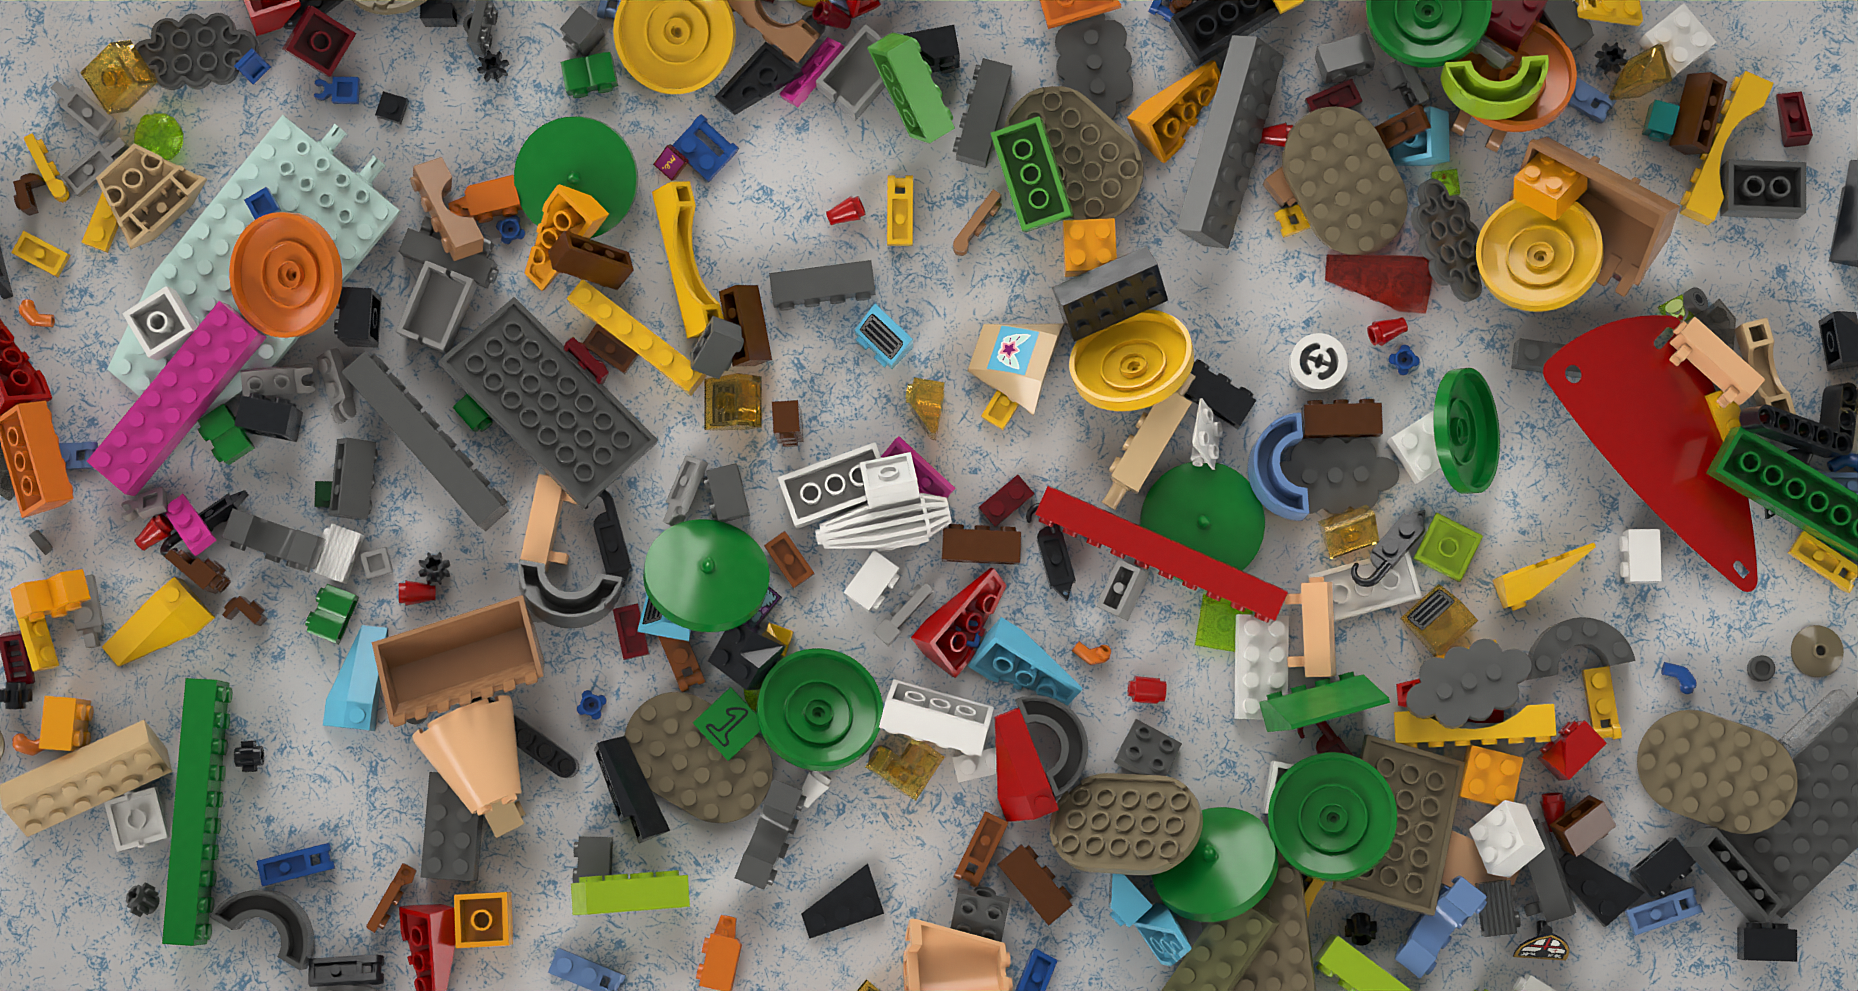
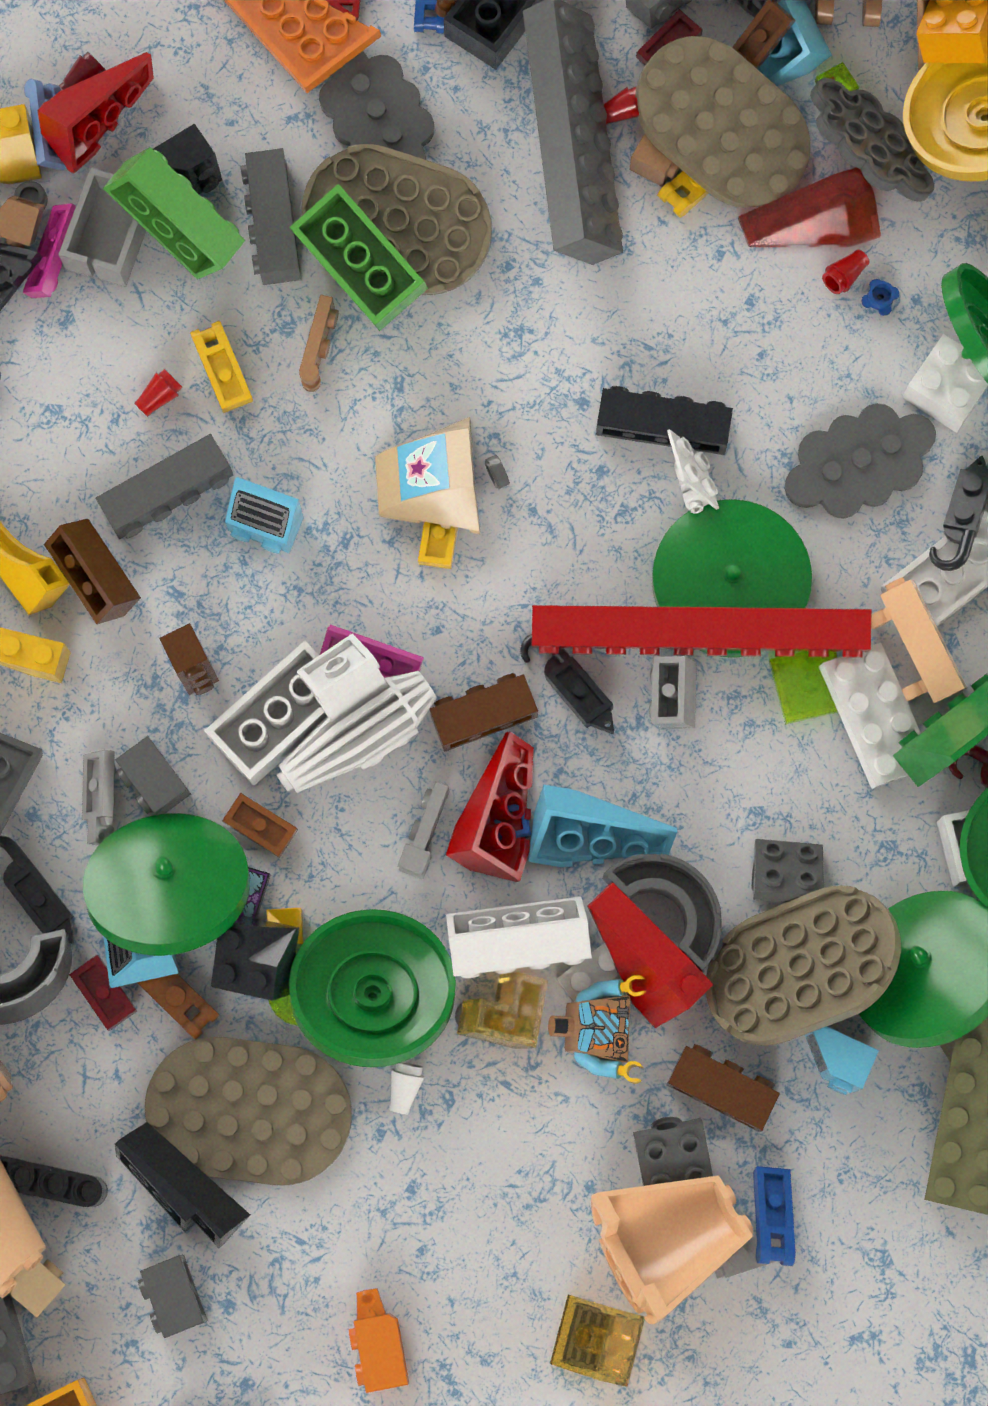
camera: 25 degrees left, 5 degrees down
(587, 698) = (82, 1097): blue plate -> none
(633, 894) = (225, 1318): lime brick -> none
(716, 347) = (67, 607): dark grey brick -> none
(728, 724) = (268, 1052): green tile -> none
(733, 402) = (115, 667): clear yellow slope -> none
(771, 834) = (376, 1165): dark grey brick -> none
(830, 15) = (46, 178): dark red cone -> none
(845, 905) = (503, 1215): black wing -> none
(872, 581) = (371, 809): white brick -> none
(926, 403) = (346, 572): clear yellow slope -> none
(966, 805) = (599, 1028): none -> torso
(981, 848) = (642, 1049): dark orange plate -> none
(1006, 500) = (490, 648): dark red plate -> none
(1065, 376) = (496, 472): none -> dark grey tile
(1087, 245) = (461, 317): light orange brick -> none
(1094, 655) = (672, 786): orange arm -> none
(1110, 293) = (509, 356): black brick -> none
(1132, 362) = (568, 419): yellow container -> none
(1147, 445) = (631, 500): tan brick -> none
(1147, 690) = (754, 798): red brick -> none
(1163, 934) = (908, 1081): medium azure wedge -> none
(1168, 115) = (488, 133): light orange wedge -> none
(1266, 474) = (783, 488): medium blue brick -> none
(1311, 382) = (786, 318): white wheel -> none
(1342, 419) = (840, 392): reddish brown brick -> none
(1349, 531) = (908, 514): clear yellow slope -> none

